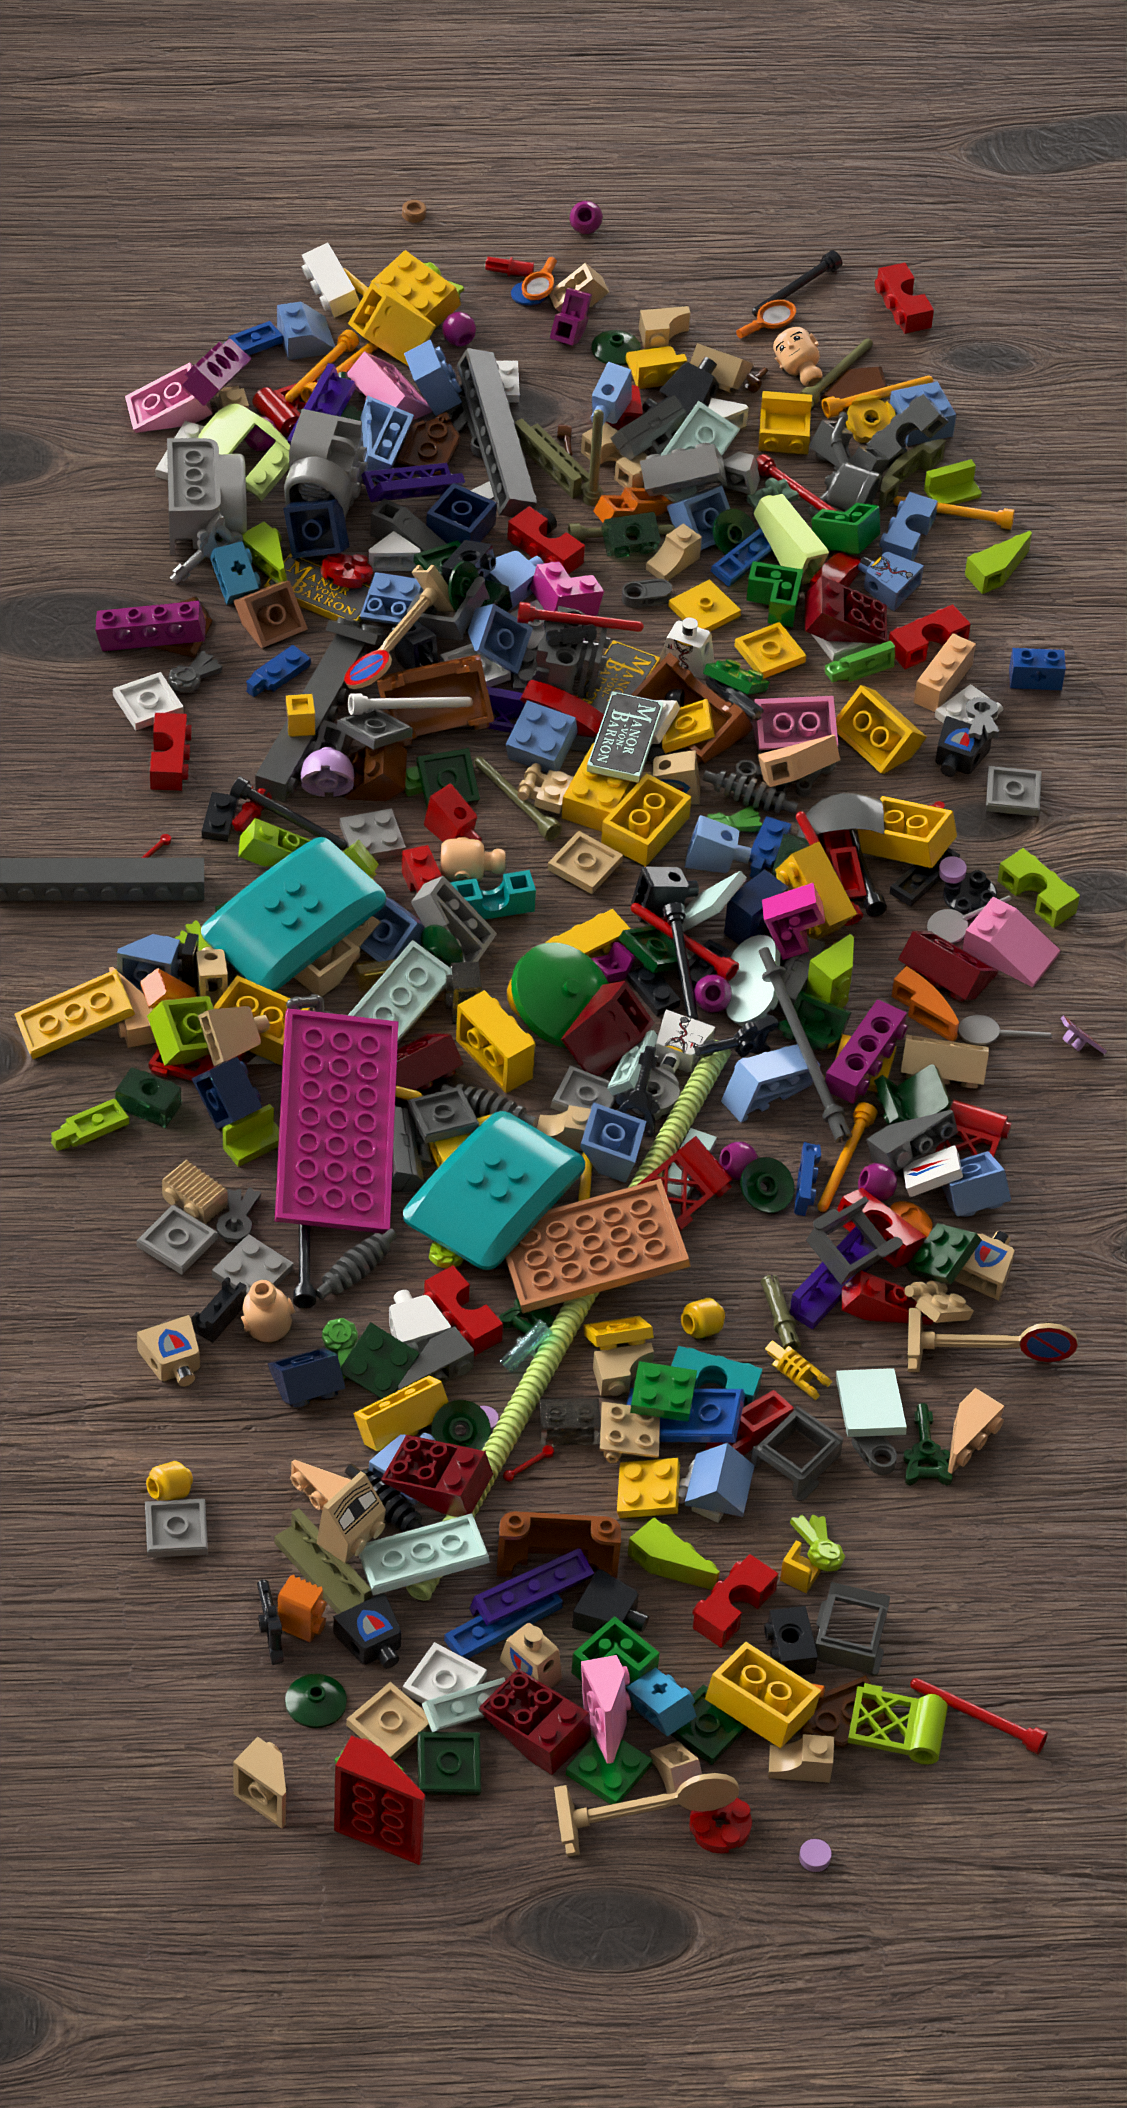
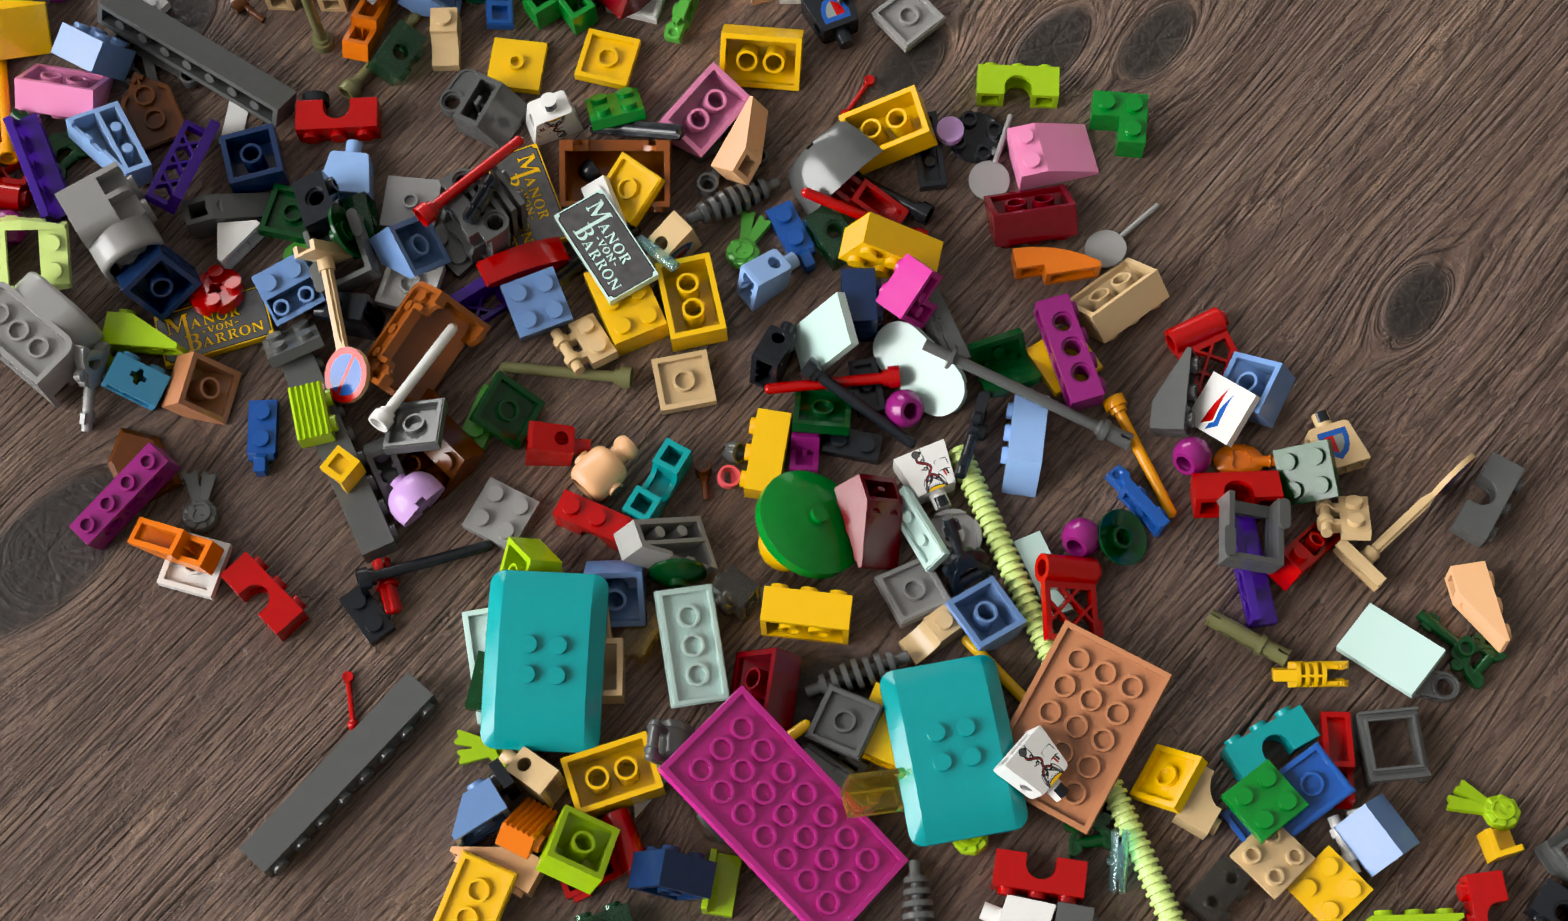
camera: 40 degrees left, 20 degrees up
(148, 676) = (176, 545): none -> orange slope
(231, 1031) = (622, 821): tan torso -> none
(267, 843) = (448, 599): lime slope -> none
(319, 672) = (312, 414): none -> lime brick
(411, 1158) = (873, 793): none -> clear yellow panel
(531, 1229) = (1034, 766): none -> white torso
(534, 923) = (704, 474): none -> reddish brown hand
(542, 930) = (734, 477): none -> coral hinge
(552, 458) = (259, 41): olive fence -> none
(555, 588) = (407, 158): dark pink brick -> none
(571, 922) = (734, 452): none -> dark grey hinge
(654, 607) = (490, 112): none -> dark grey slope
(654, 768) = (658, 253): none -> clear light blue piece
(703, 1318) = (1205, 700): yellow head -> none
(831, 973) = (976, 307): lime slope -> none
(915, 1097) = (1139, 357): bracket -> none
(1037, 1391) = (1499, 480): none -> dark grey arch
(1082, 1038) = (1179, 186): lavender piece -> none
(1089, 964) = (1124, 115): none -> green brick

